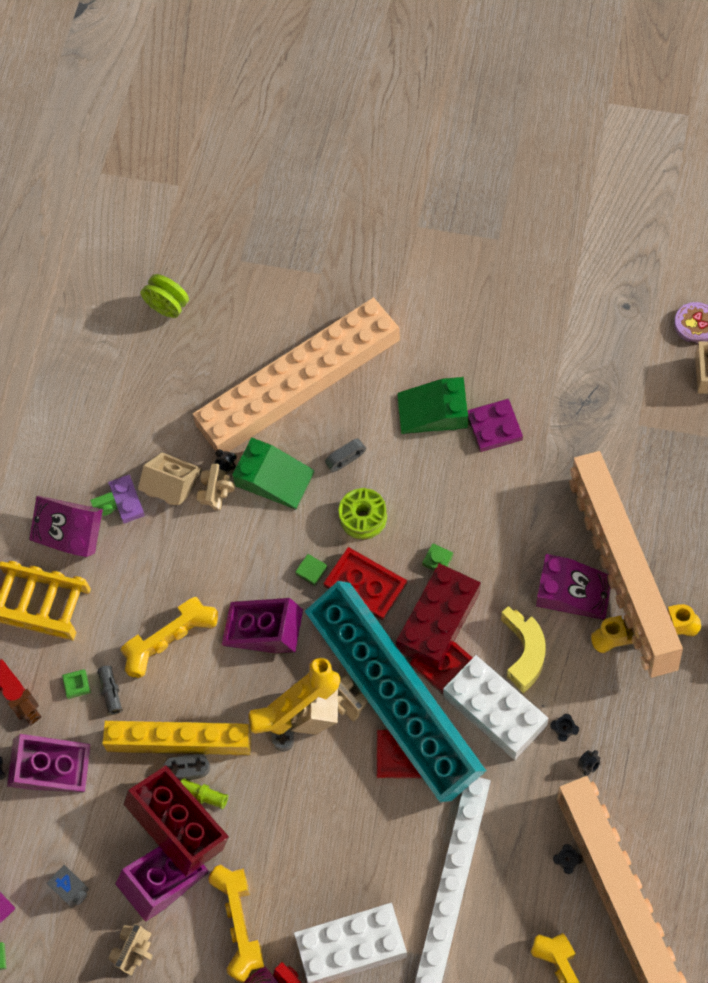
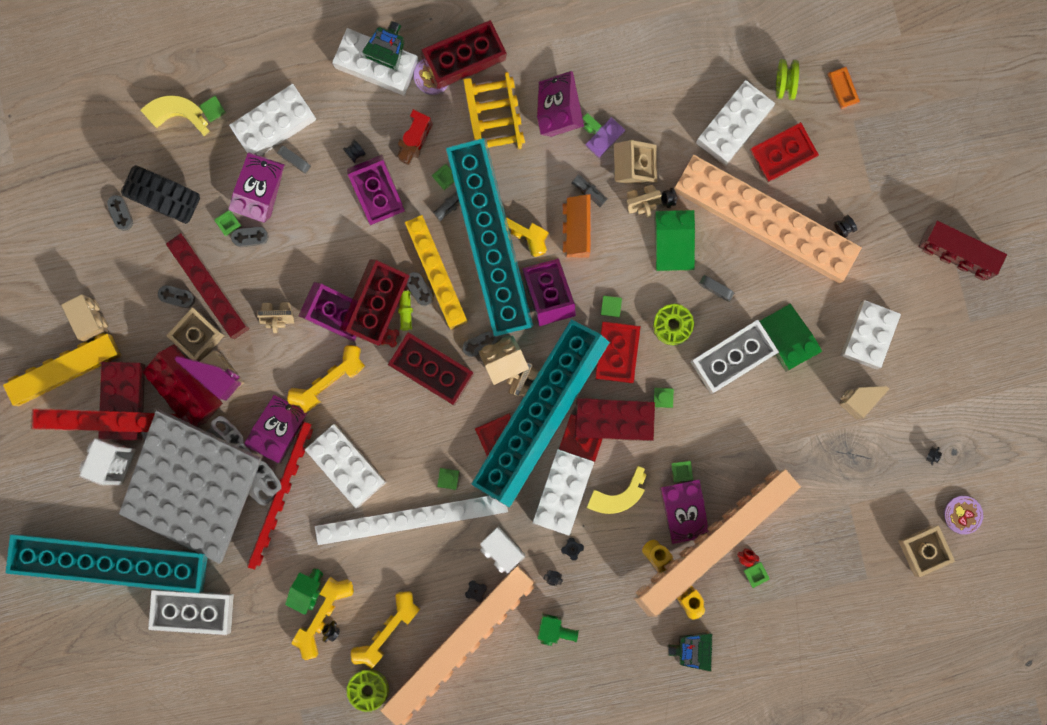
camera: 65 degrees right, 20 degrees up
(17, 937) = (250, 241): none -> dark grey beam
(68, 886) = (297, 250): dark grey brick -> none
(168, 654) = (489, 237): none -> teal brick
(174, 537) = (586, 188): none -> dark grey pin
(182, 365) = (735, 123): none -> white brick
(201, 255) = (843, 87): none -> orange tile
(207, 562) = (577, 226): none -> orange slope
(231, 826) = (392, 341): none -> red plate
(237, 333) = (784, 152): none -> red plate
(285, 791) = (431, 369): none -> dark red brick
(317, 683) = (481, 338): yellow plate -> none
(343, 305) = (845, 226): none -> black wheel
(421, 832) = (448, 479): none -> bright green plate
(423, 211) = (962, 250): none -> dark red brick
(428, 466) = (734, 357): none -> white brick
(468, 329) = (870, 334): none -> white brick
(494, 425) = (796, 392): magenta plate -> none
(528, 572) = (682, 471): none -> bright green plate
(532, 797) = (502, 550): none -> white brick
(534, 362) = (861, 400): none -> tan slope
(622, 322) = (934, 455): none -> black plate
(650, 785) = (551, 630): none -> green brick
(653, 545) = (747, 557): none -> red plate
(676, 544) = (756, 574): none -> bright green plate

